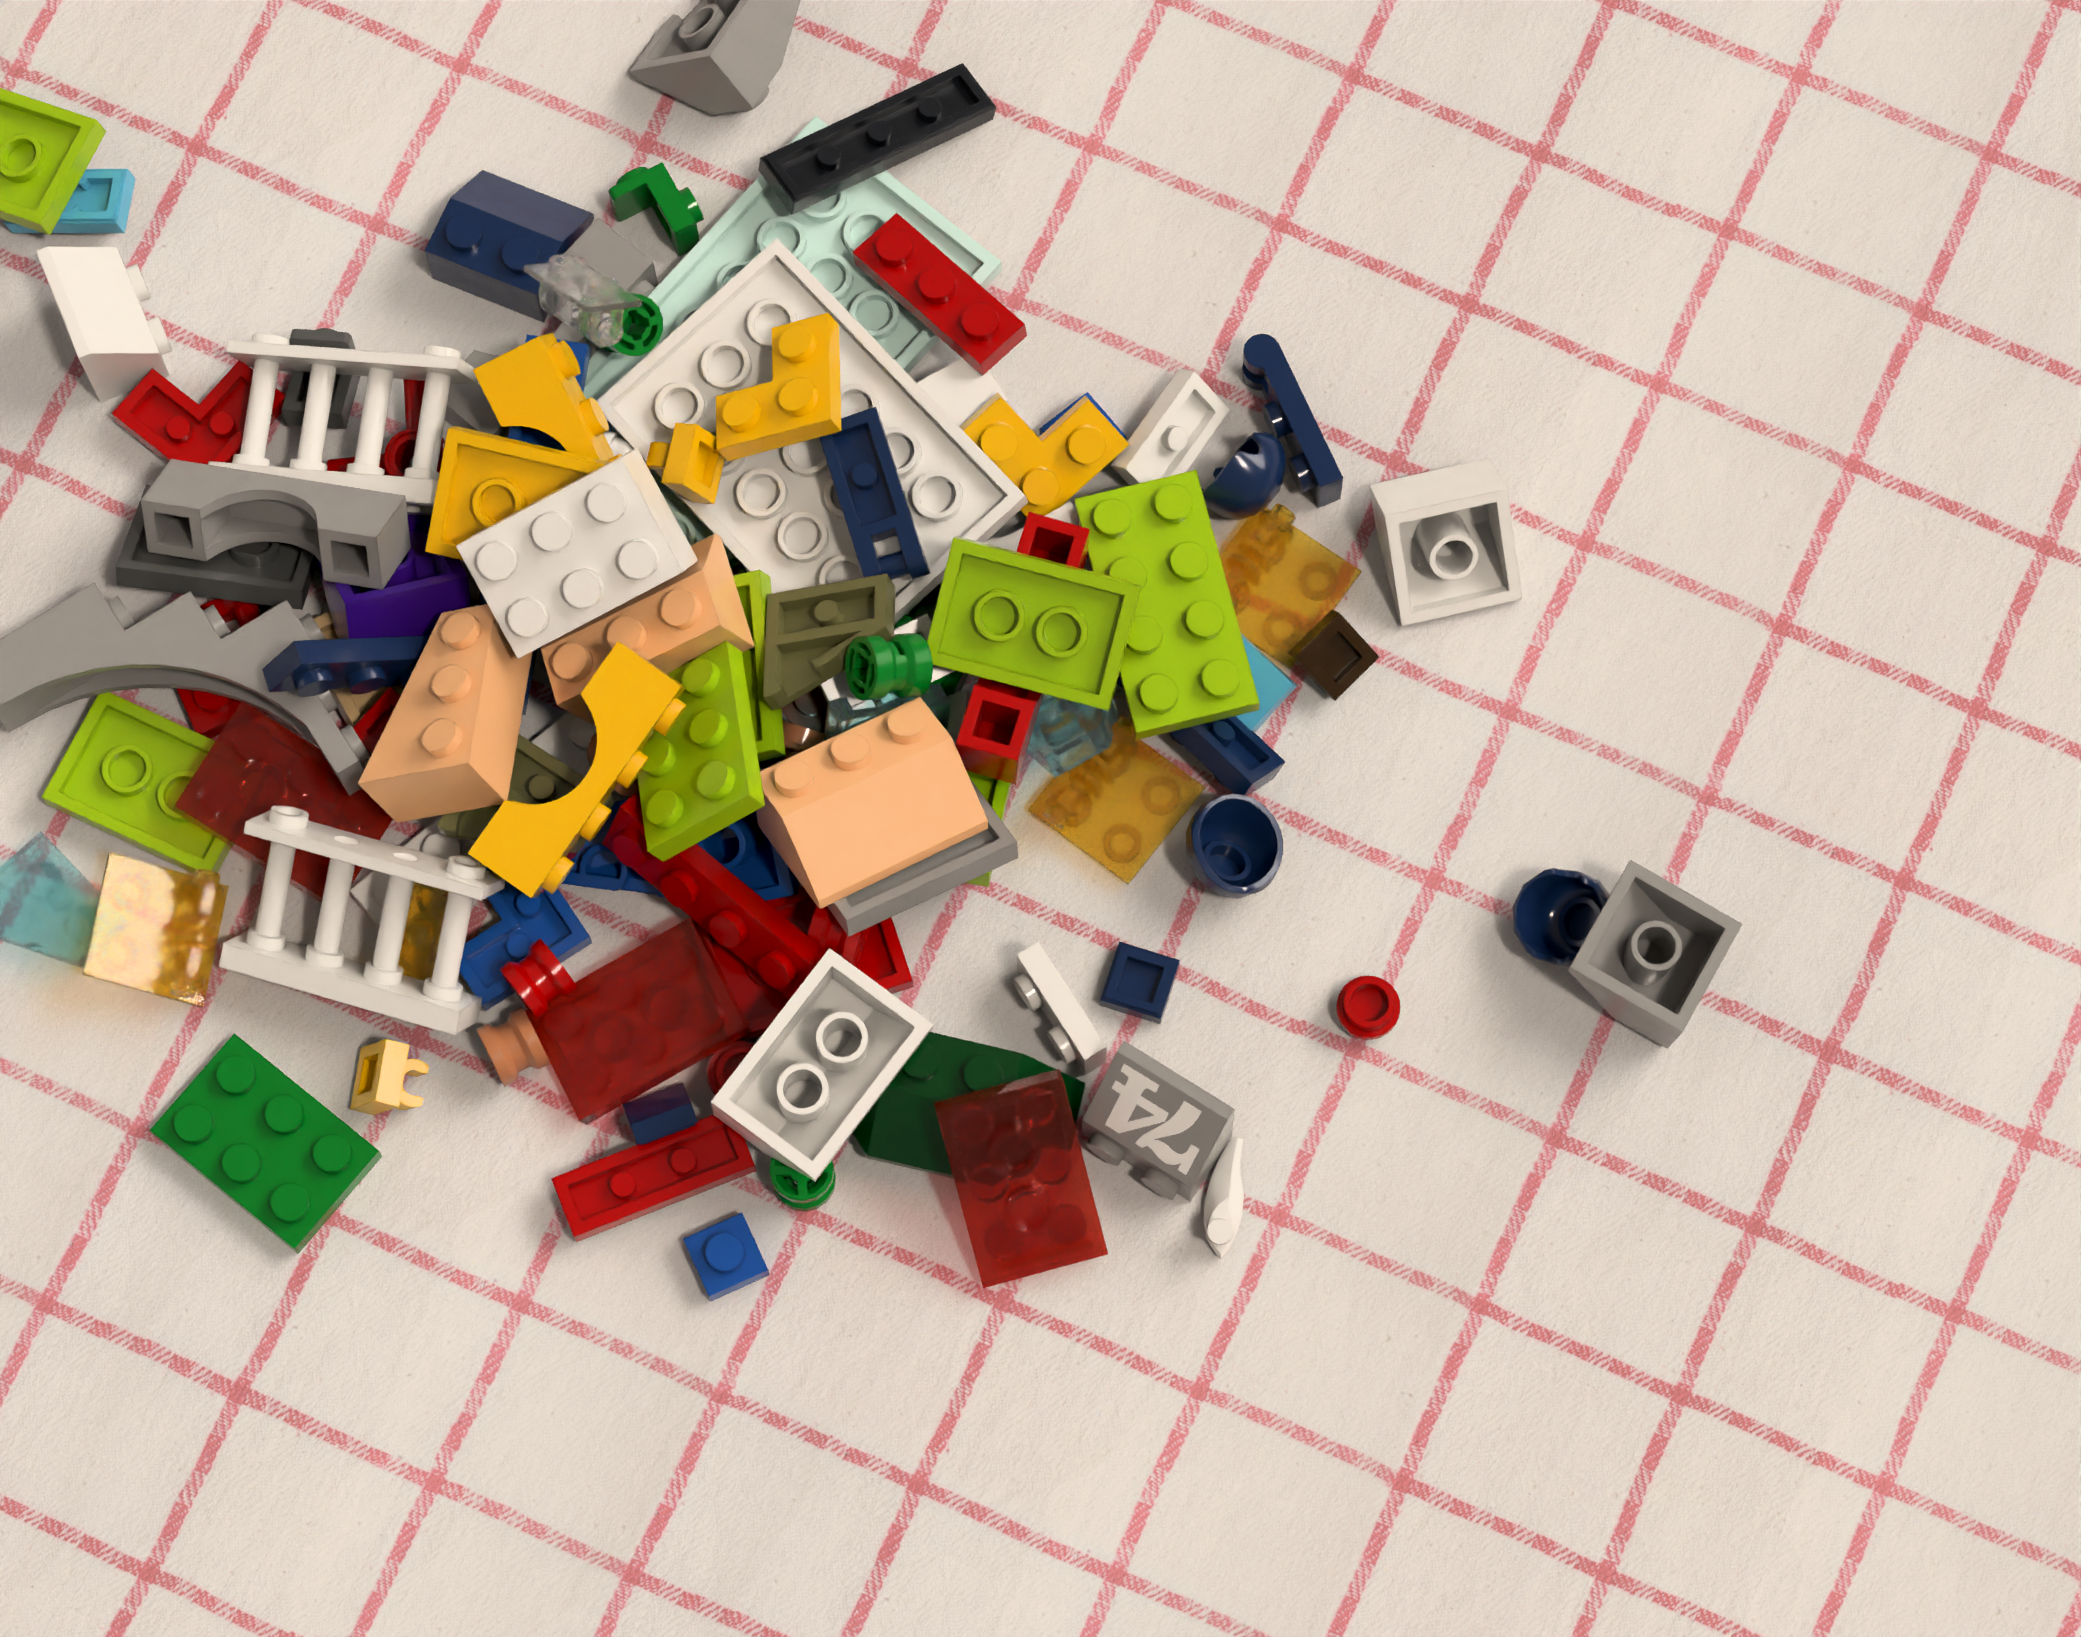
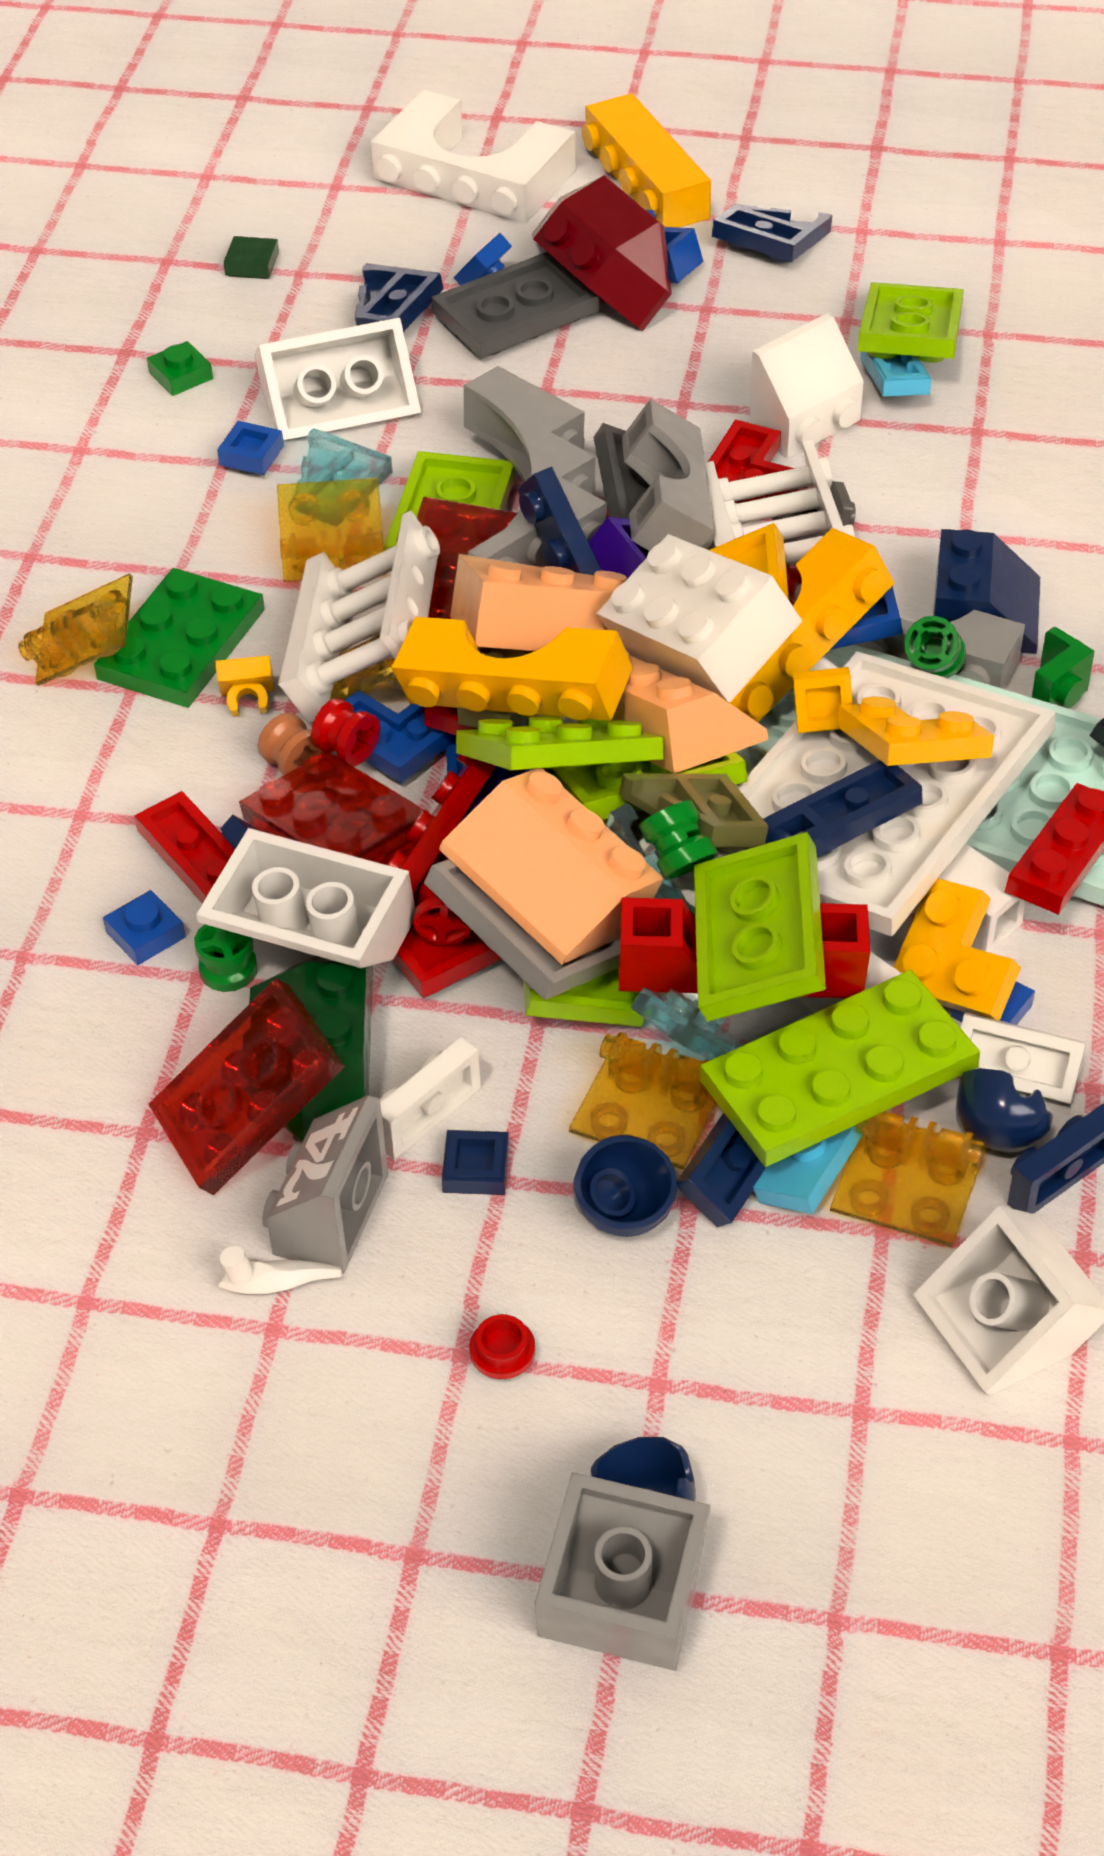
camera: 75 degrees right, 25 degrees down
(239, 1250) = (80, 631): none -> clear yellow hinge
(583, 297) = (940, 596): clear hinge -> none
(1333, 654) = (853, 1232): dark brown plate -> none

